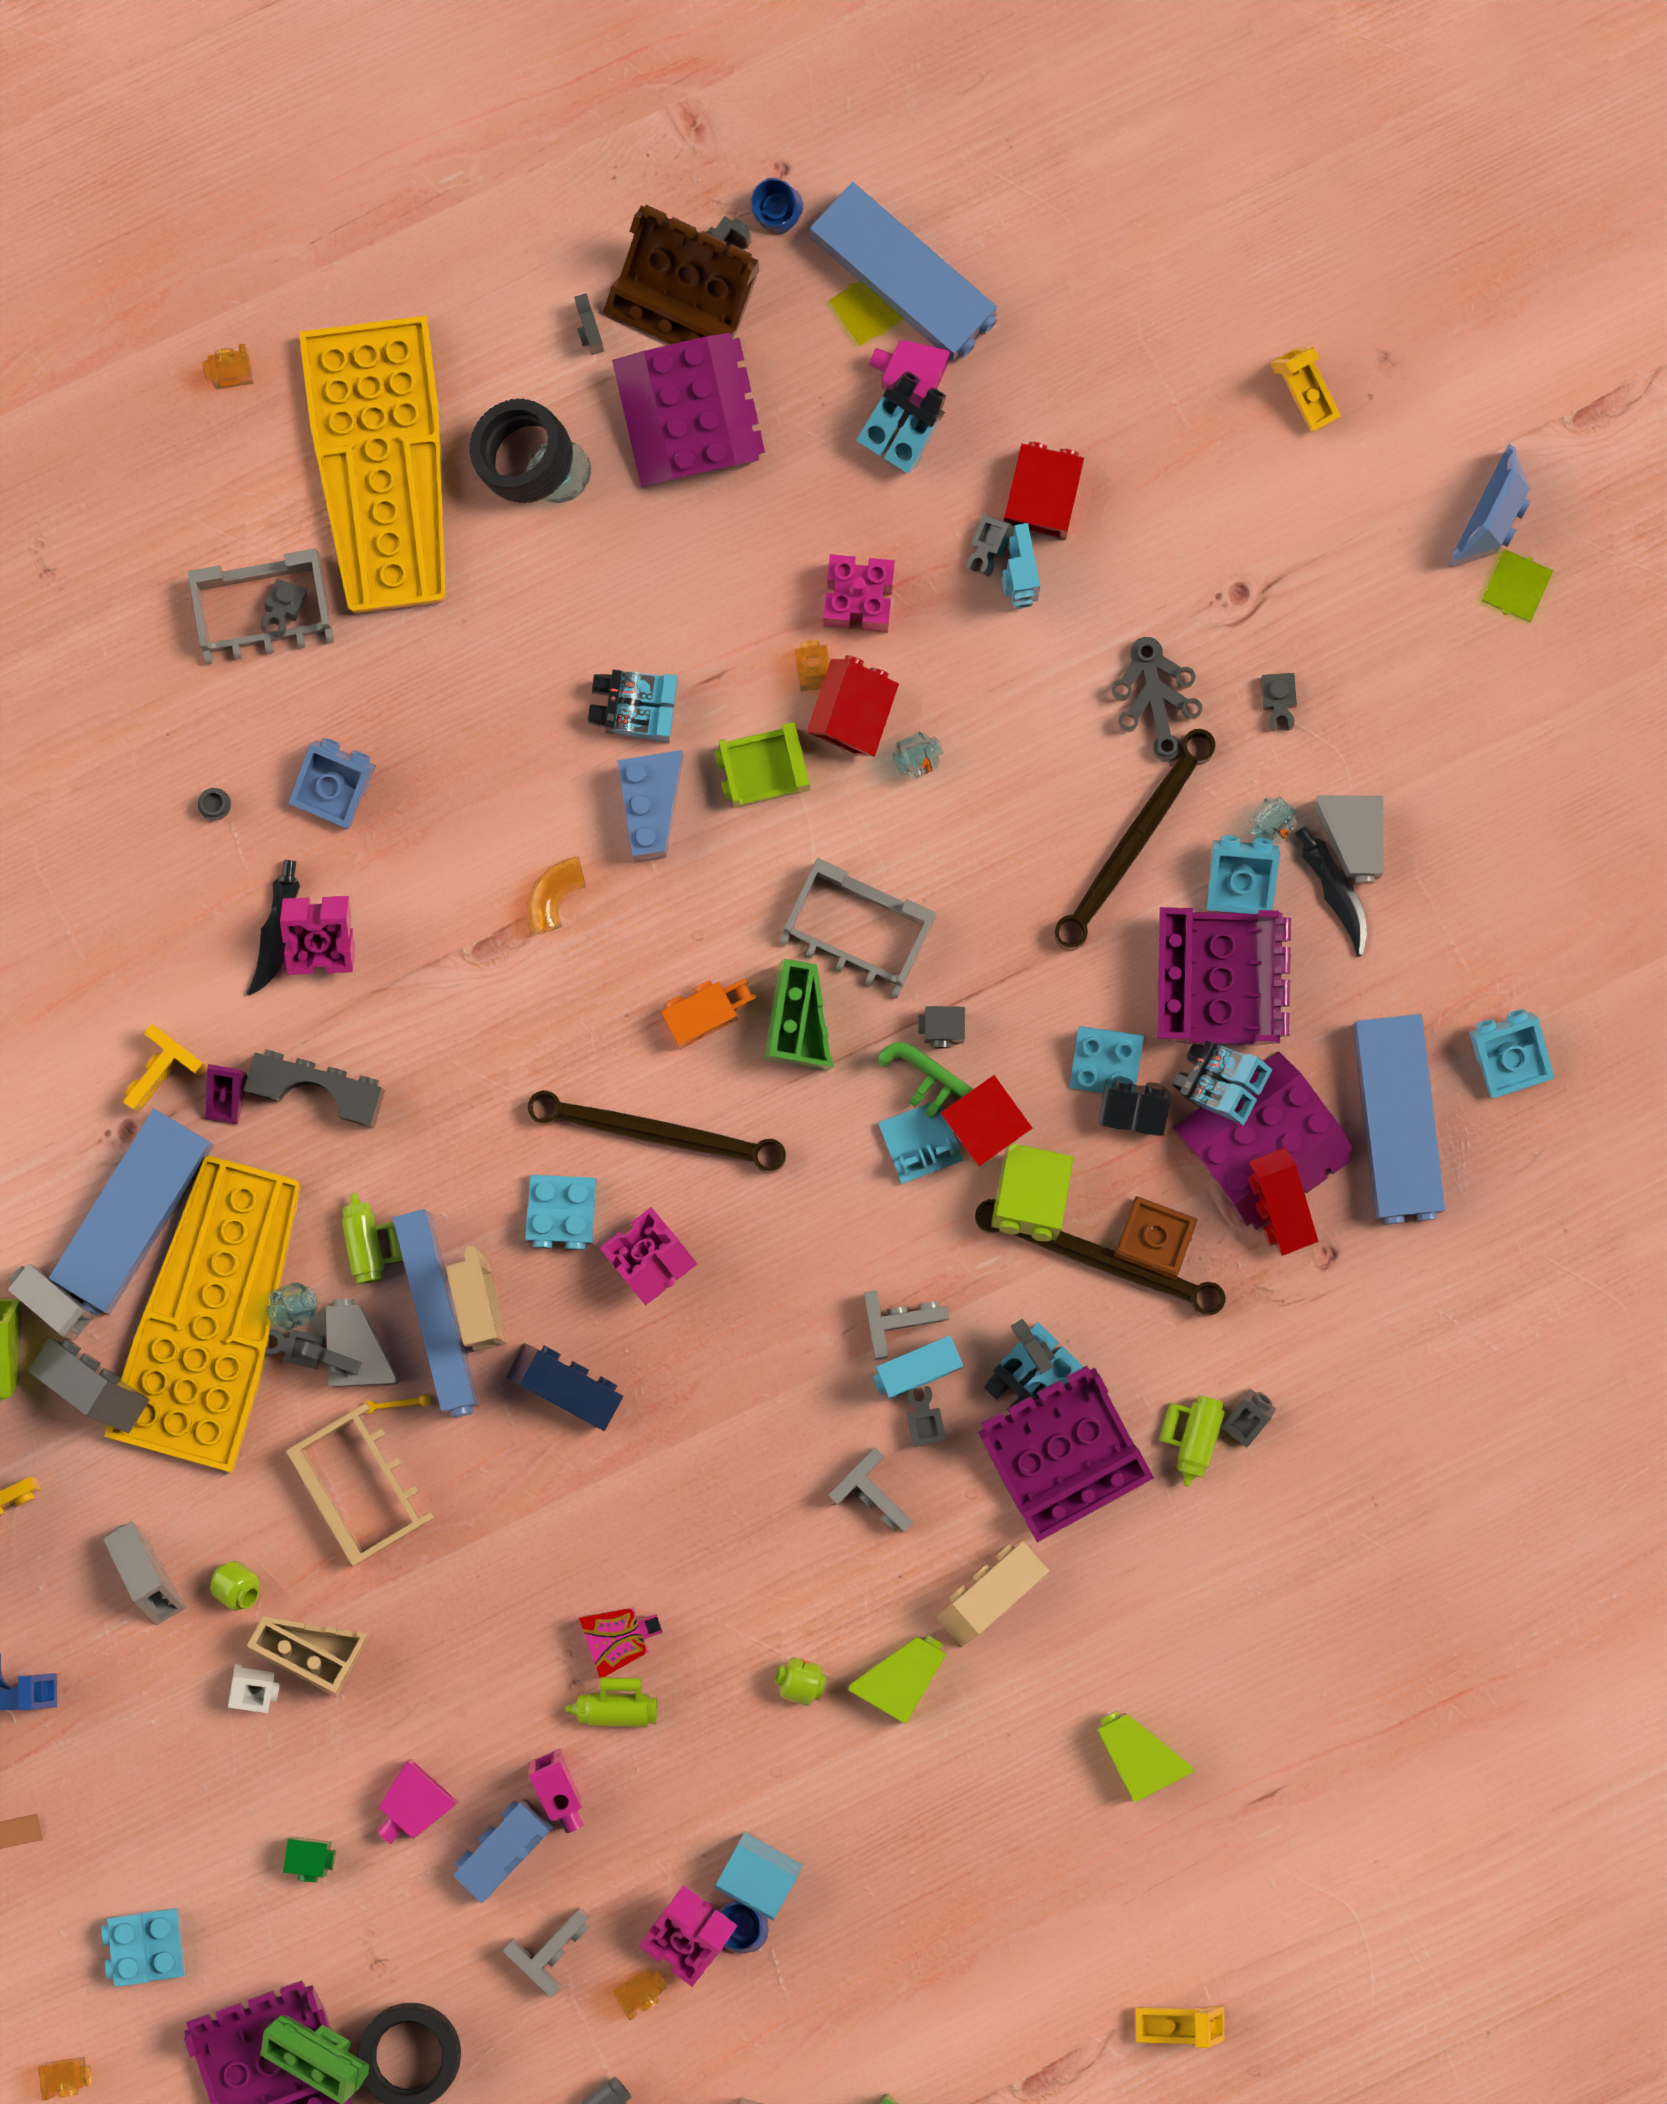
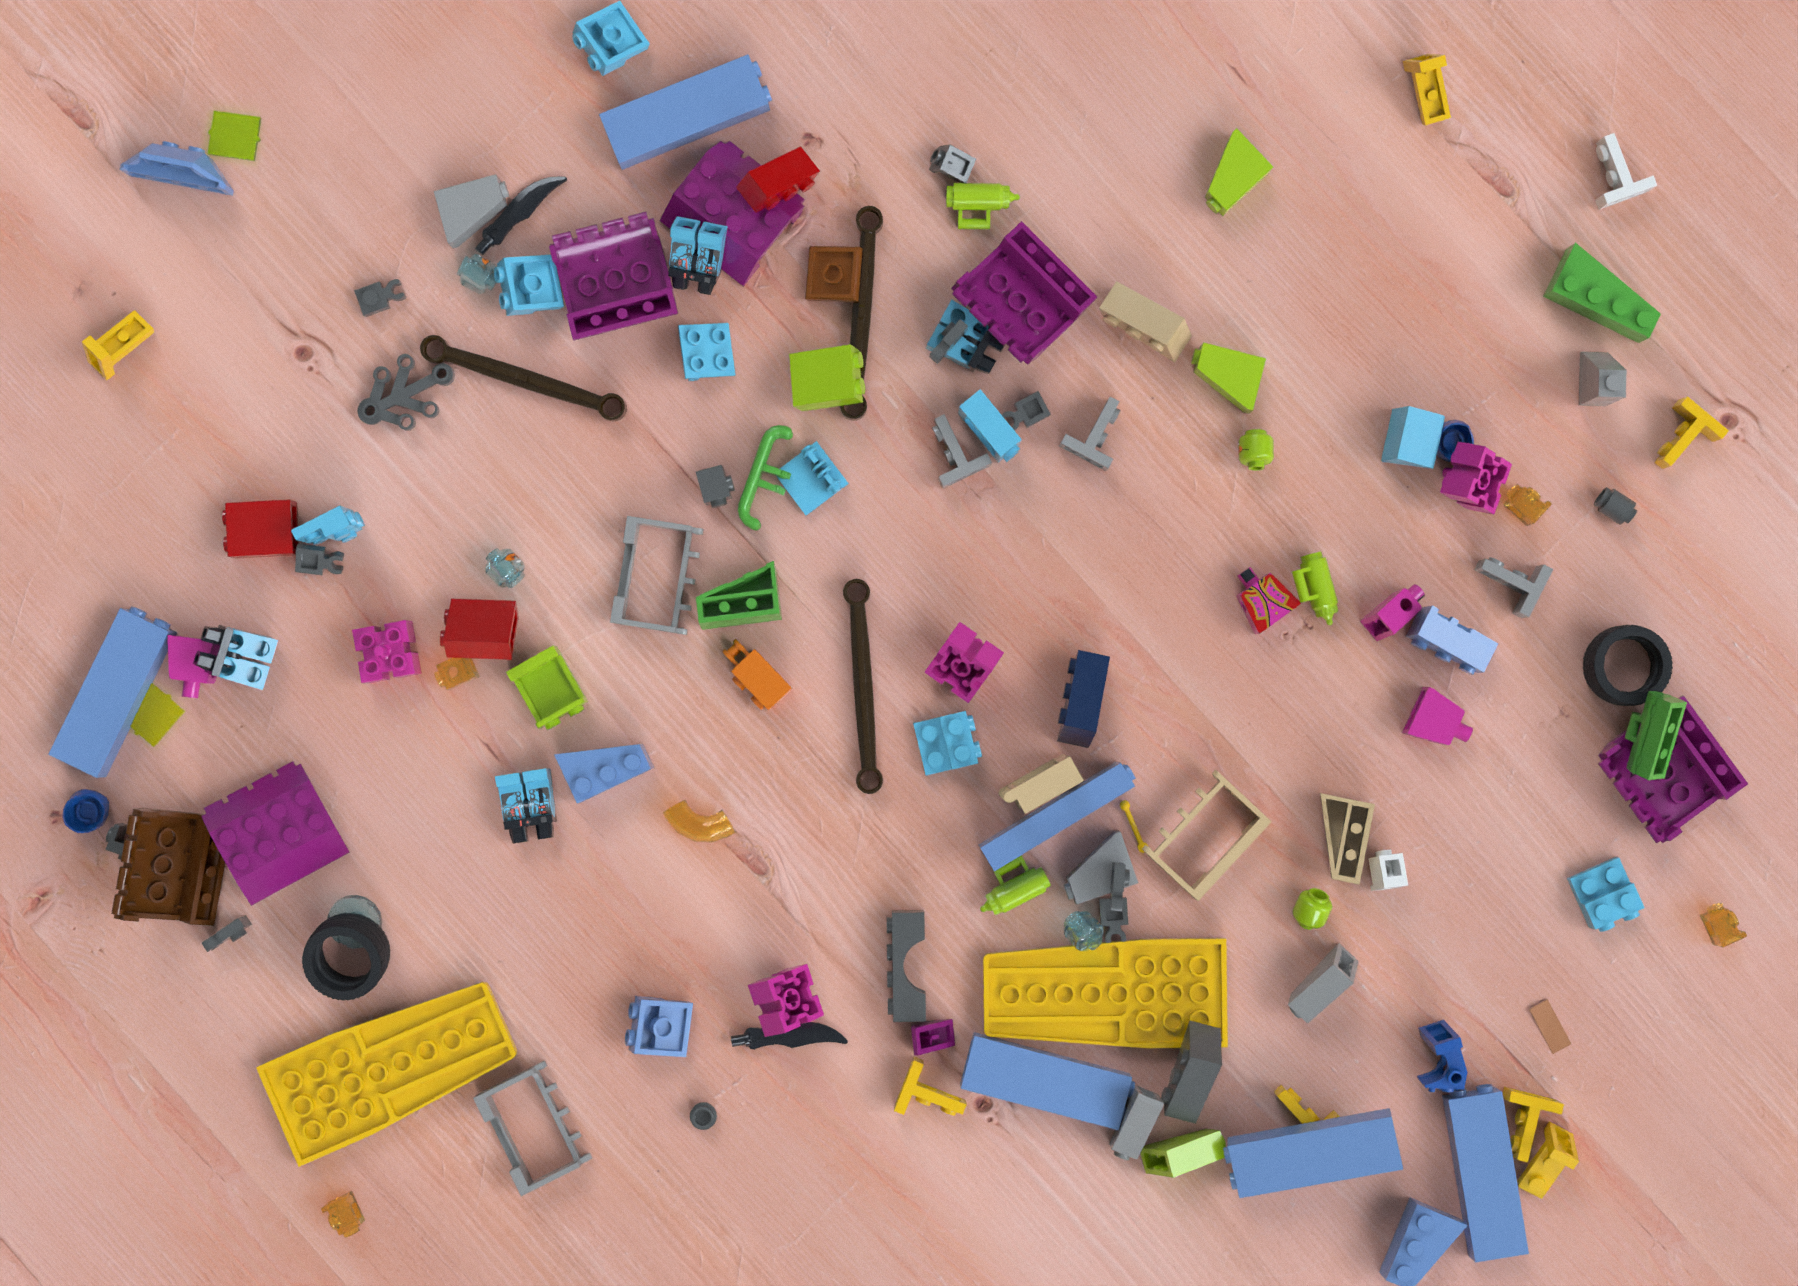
camera: 110 degrees left, 5 degrees up
(282, 604) = (525, 1111): dark grey plate -> none
(308, 1858) = (1501, 788): green brick -> none
(986, 1120) = (781, 427): red tile -> none
(1134, 1106) = (736, 317): black brick -> none

